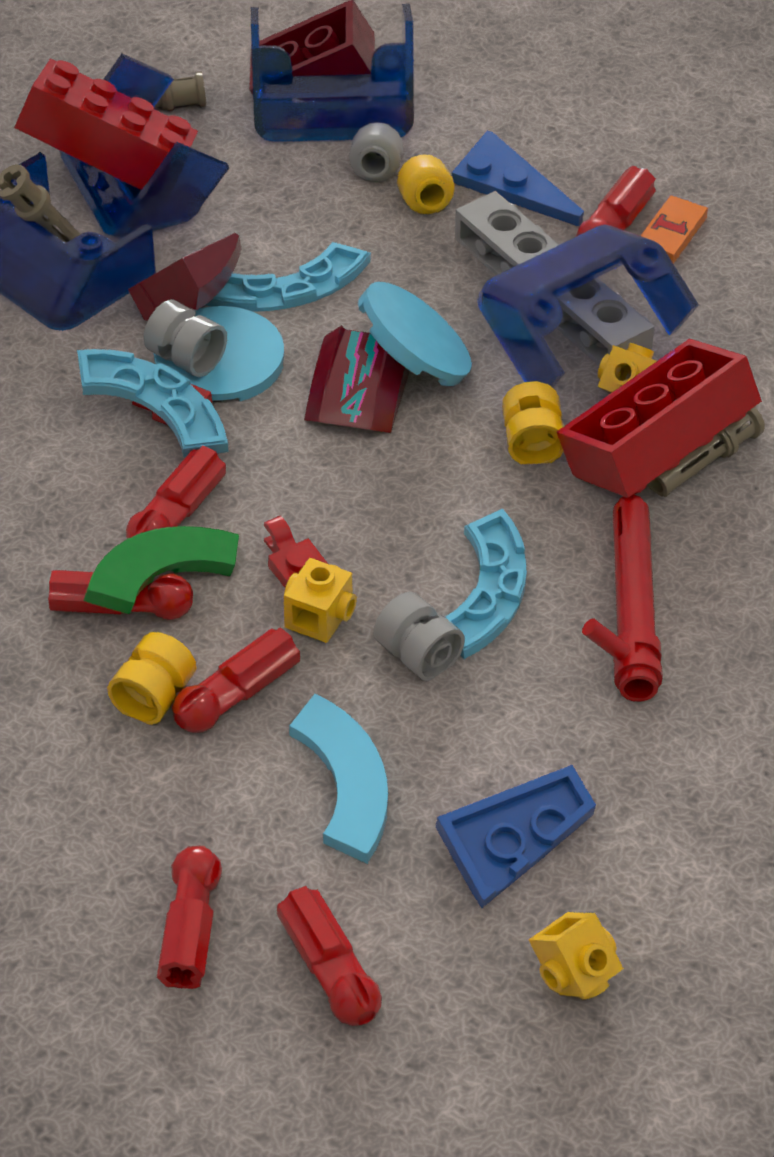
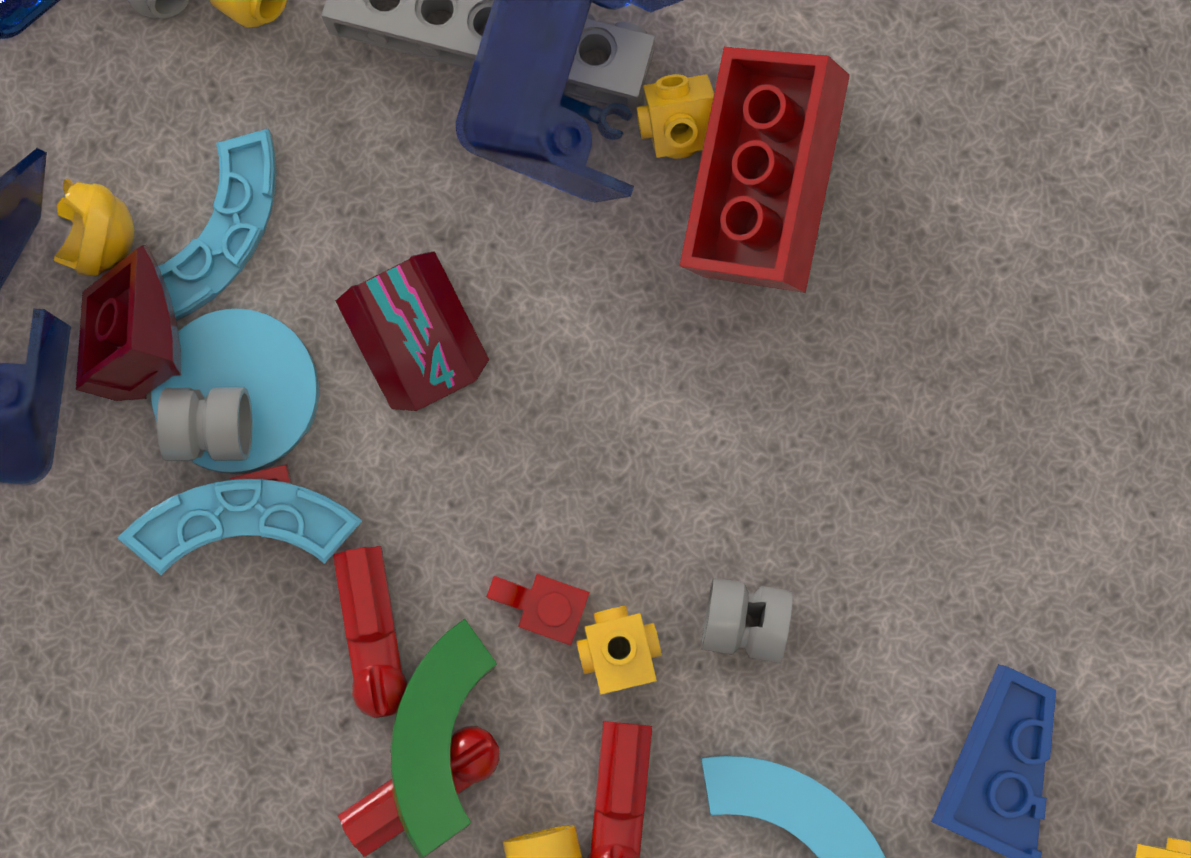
camera: 35 degrees left, 35 degrees up
(221, 221) = (100, 228): none -> yellow hat
(415, 333) = (430, 235): medium azure tile -> none
(499, 584) = (752, 479): medium azure tile -> none
(531, 422) = (646, 268): yellow wheel -> none
(583, 359) = (598, 115): none -> clear blue hand
(636, 646) = (946, 469): red cylinder -> none

